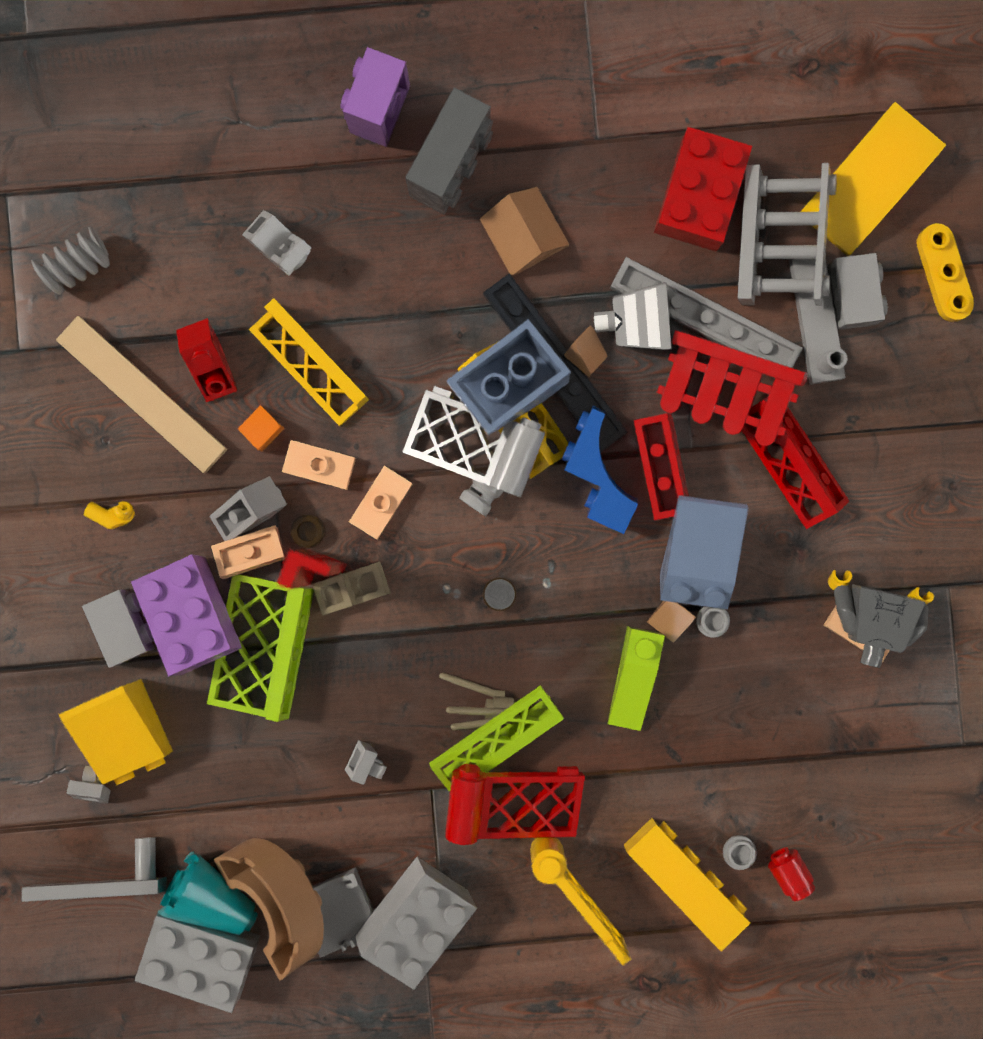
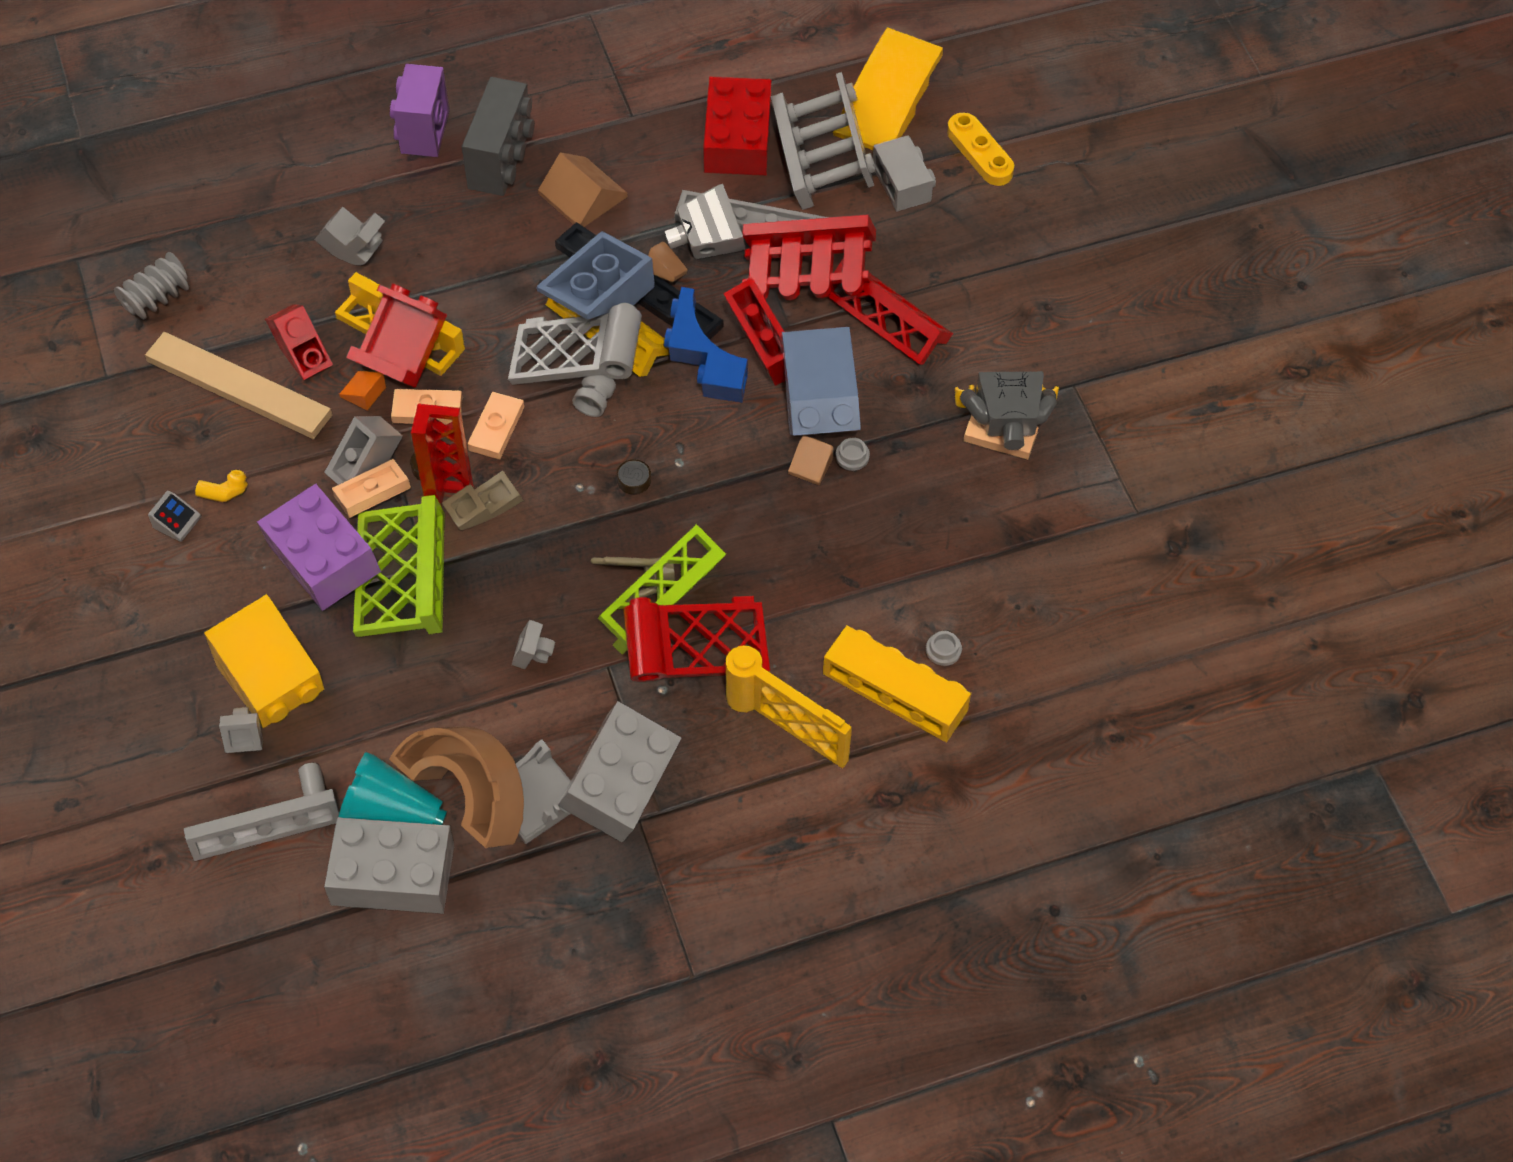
camera: 15 degrees left, 30 degrees down
(60, 537) = (173, 516): none -> slope
(119, 627) = (247, 574): light grey brick -> none
(301, 390) = (400, 335): none -> panel
(635, 677) = (789, 513): lime slope -> none
(791, 874) = (1002, 651): red brick -> none
(818, 329) = (886, 214): light grey piece -> none

